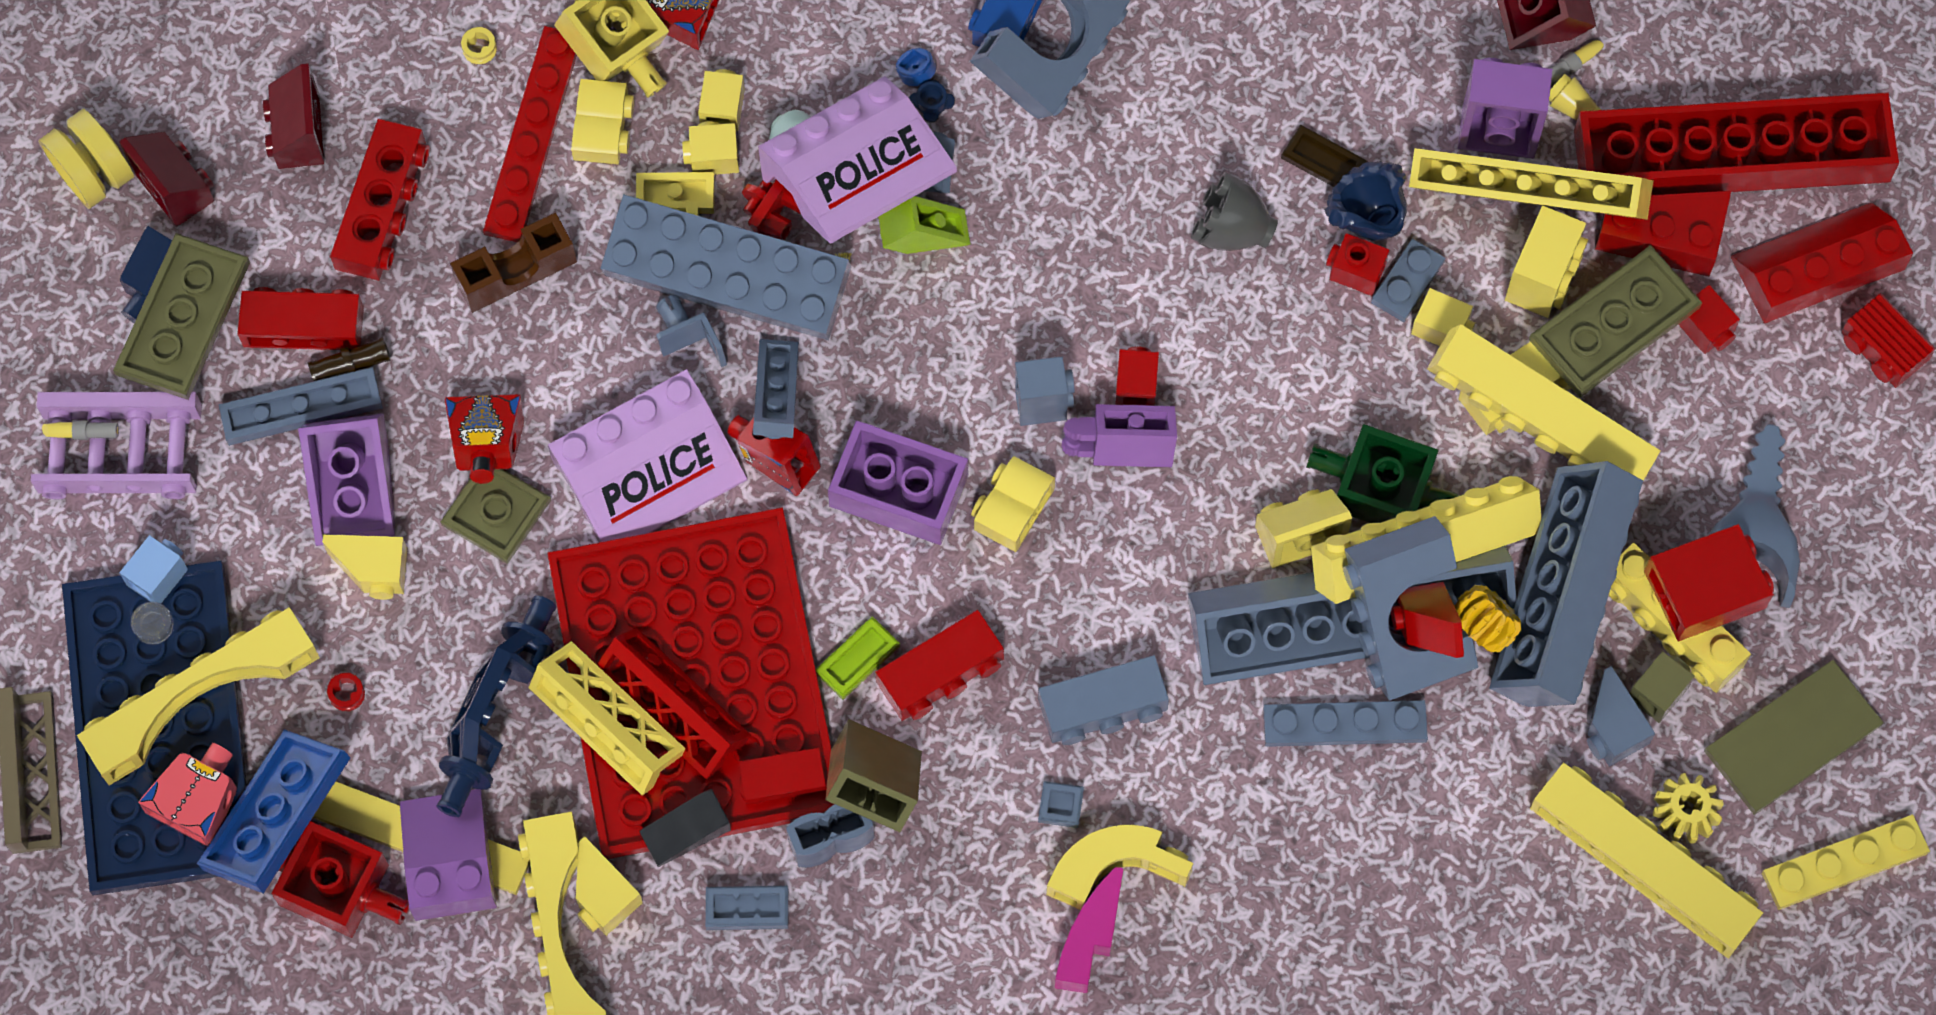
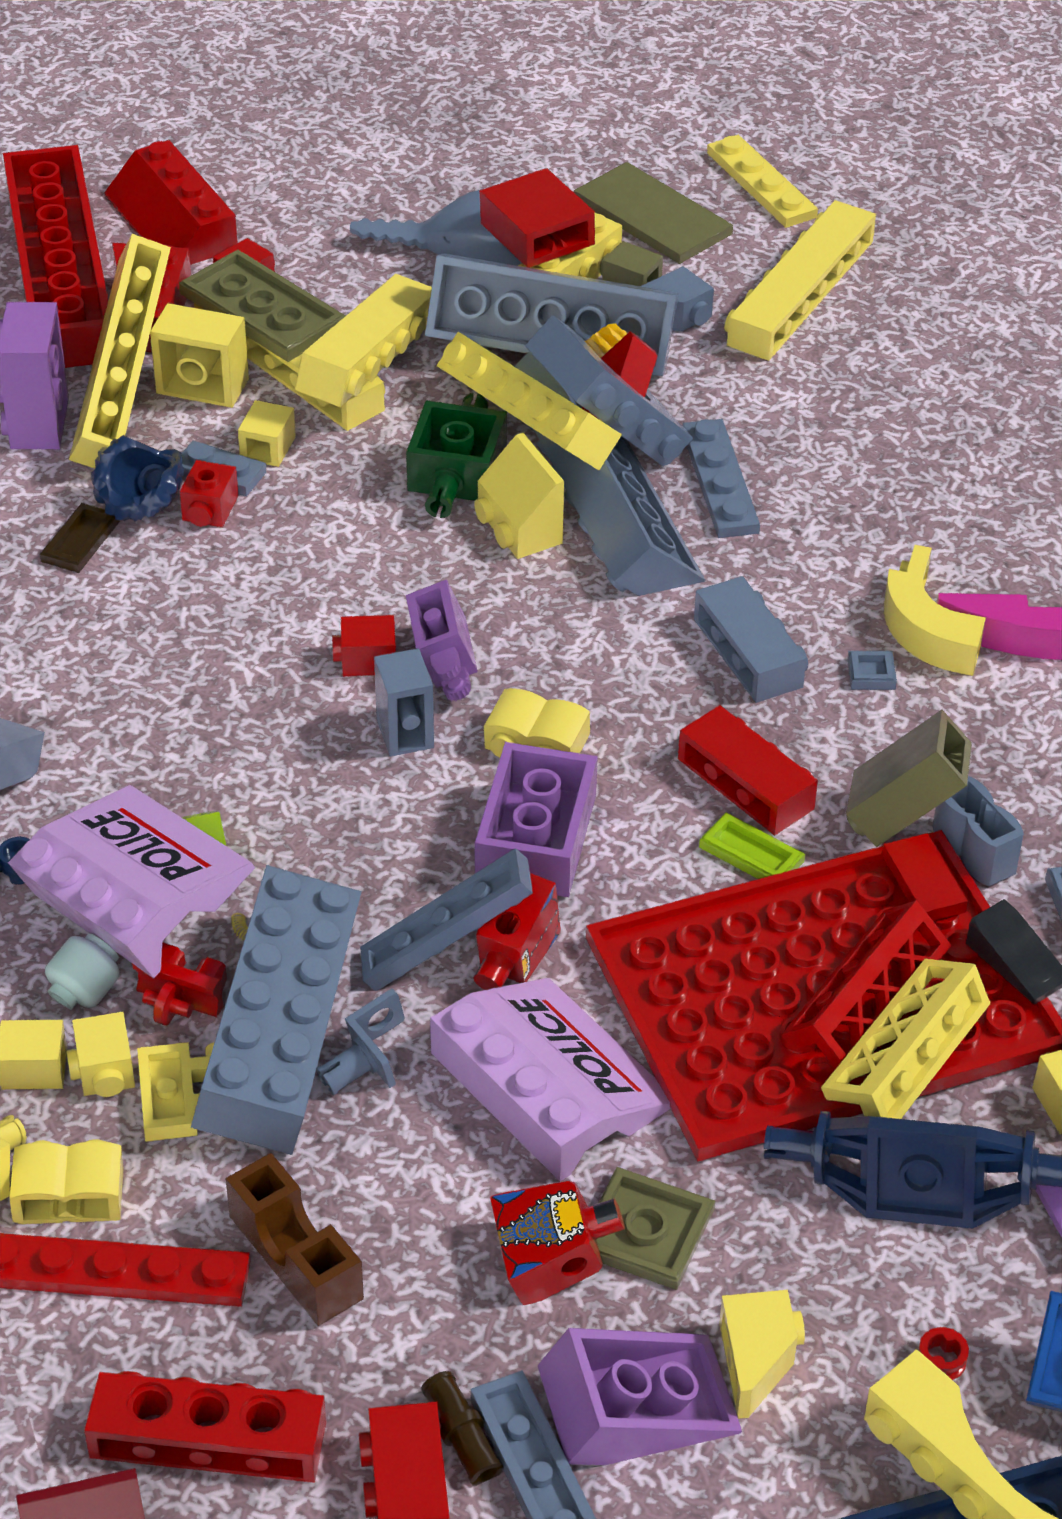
camera: 100 degrees left, 25 degrees down
(1234, 217) = (162, 581): dark grey piece -> none
(1672, 803) = (742, 257): light yellow gear -> none
(1887, 341) = (251, 169): red brick -> none

